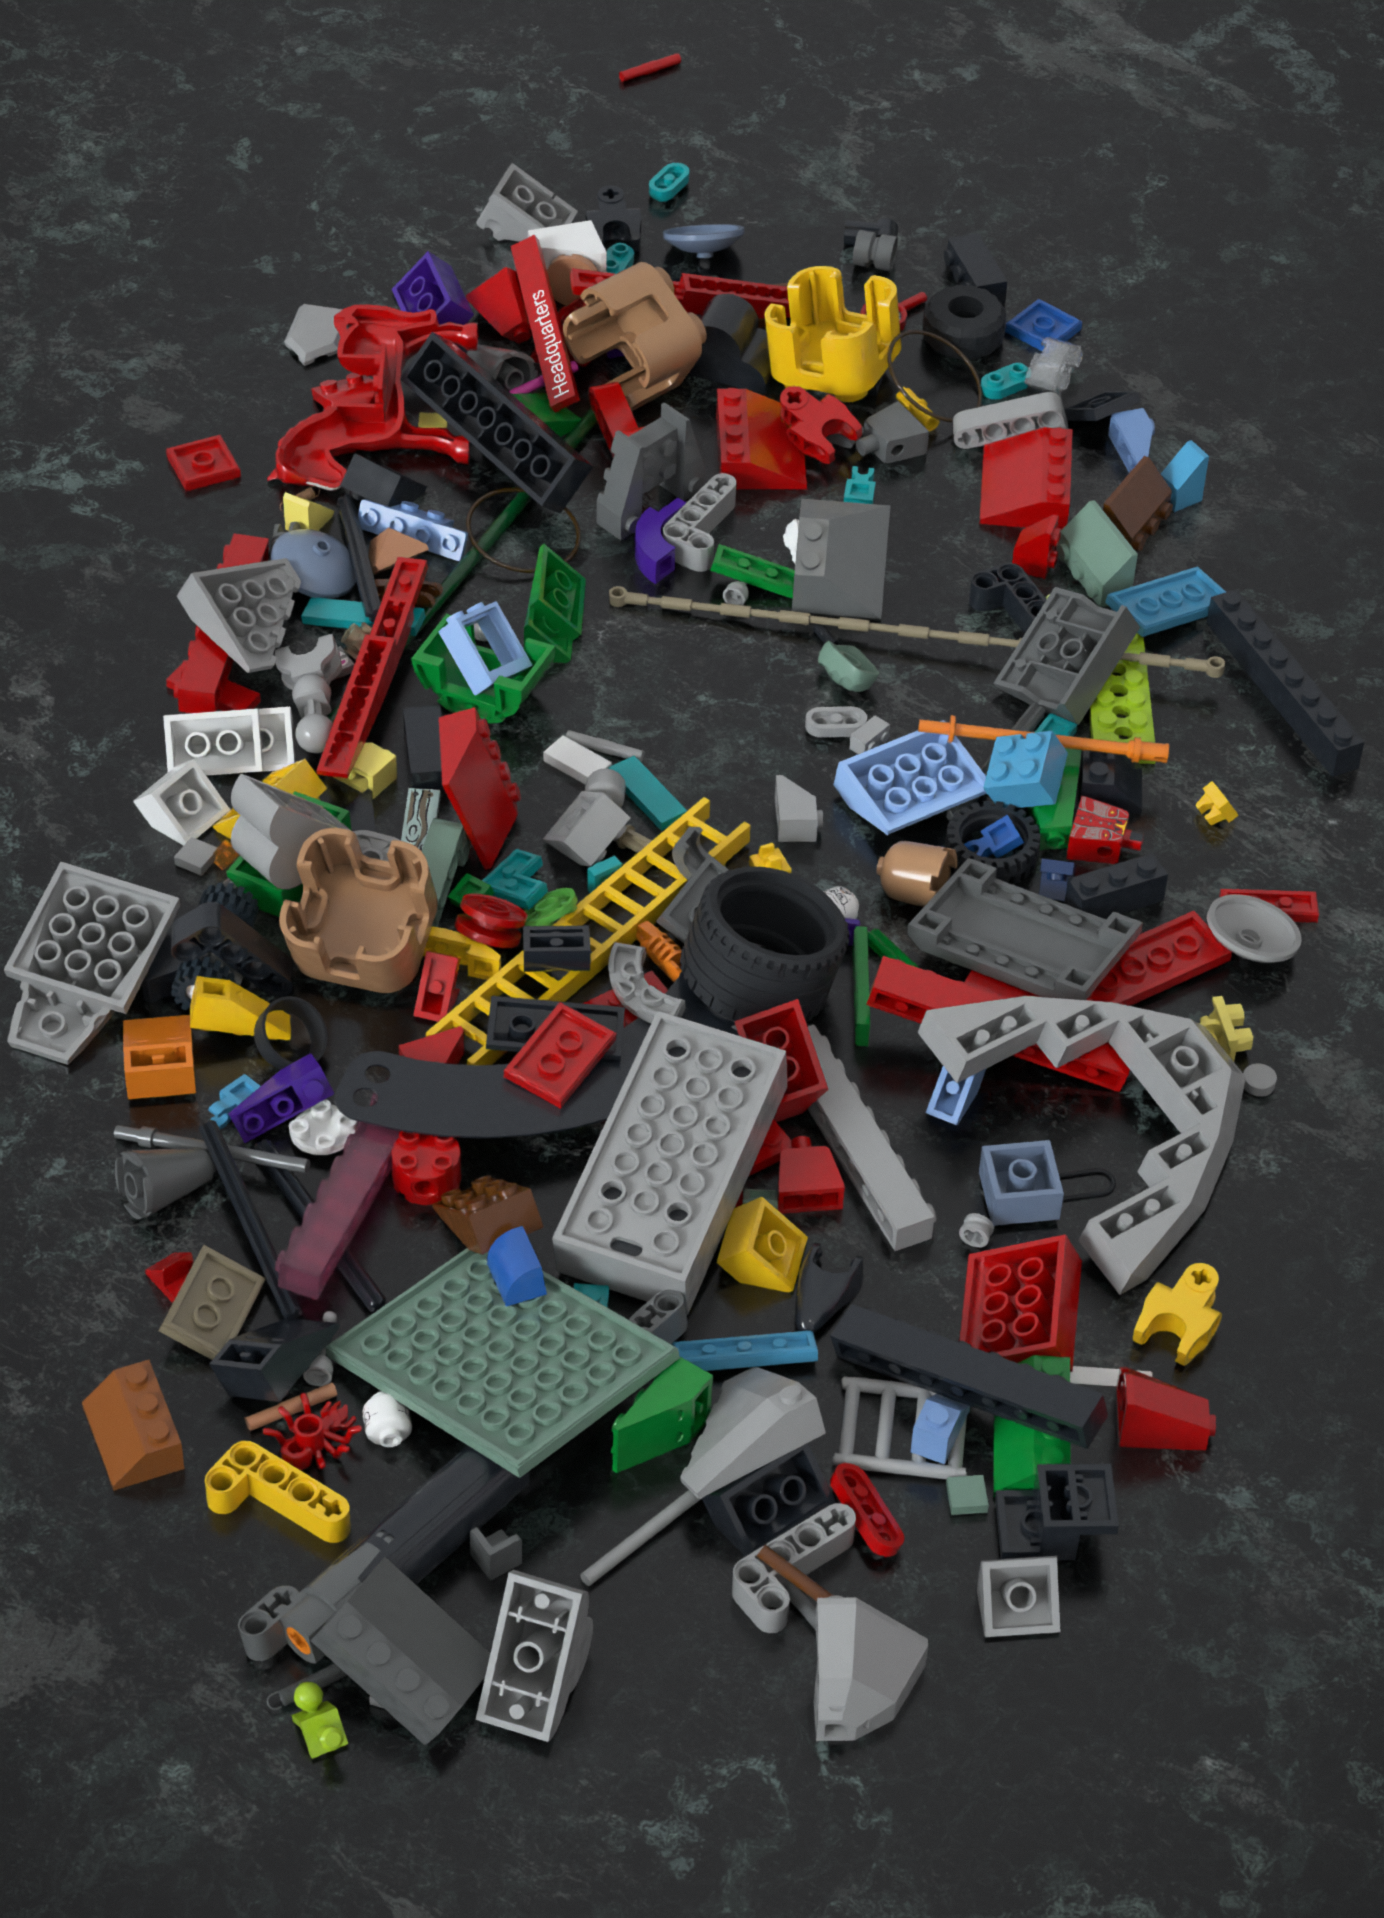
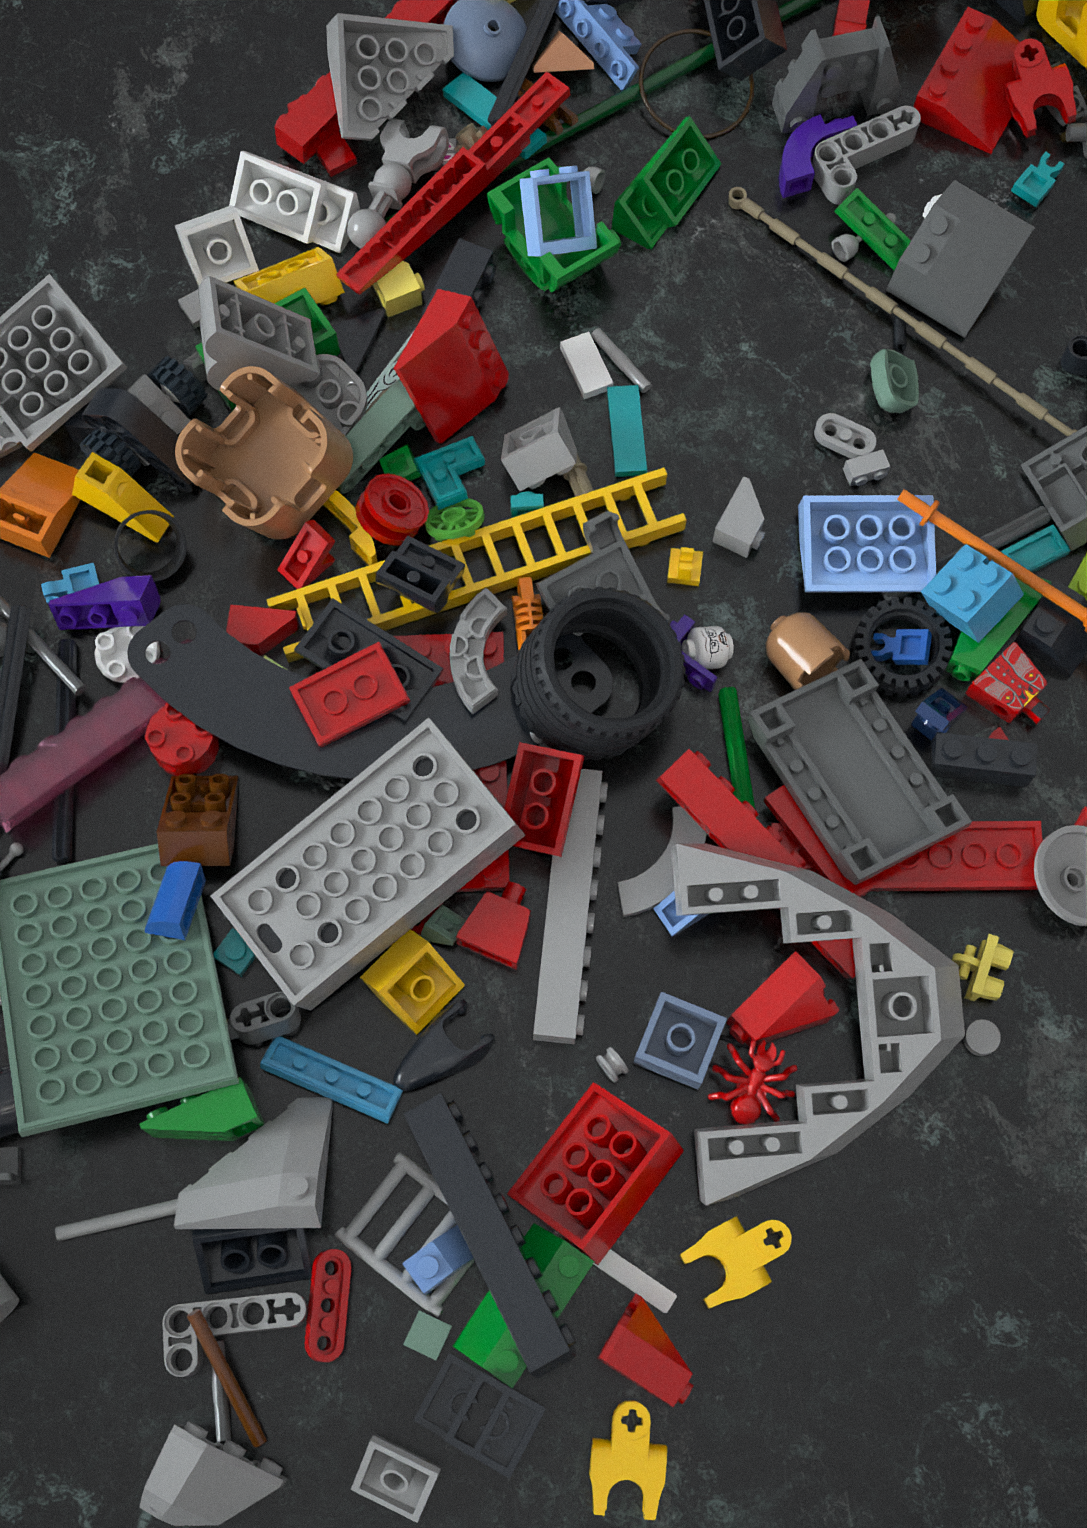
camera: 30 degrees right, 25 degrees up
(609, 783) = (586, 413): light grey head -> none
(861, 986) = (679, 741): green tile -> none
(920, 1077) = (657, 883): none -> light grey tile
(1088, 1117) = (783, 1005): none -> red slope
(1105, 1190) = (750, 1084): none -> red animal
(1201, 1492) = (630, 1458): none -> yellow piece

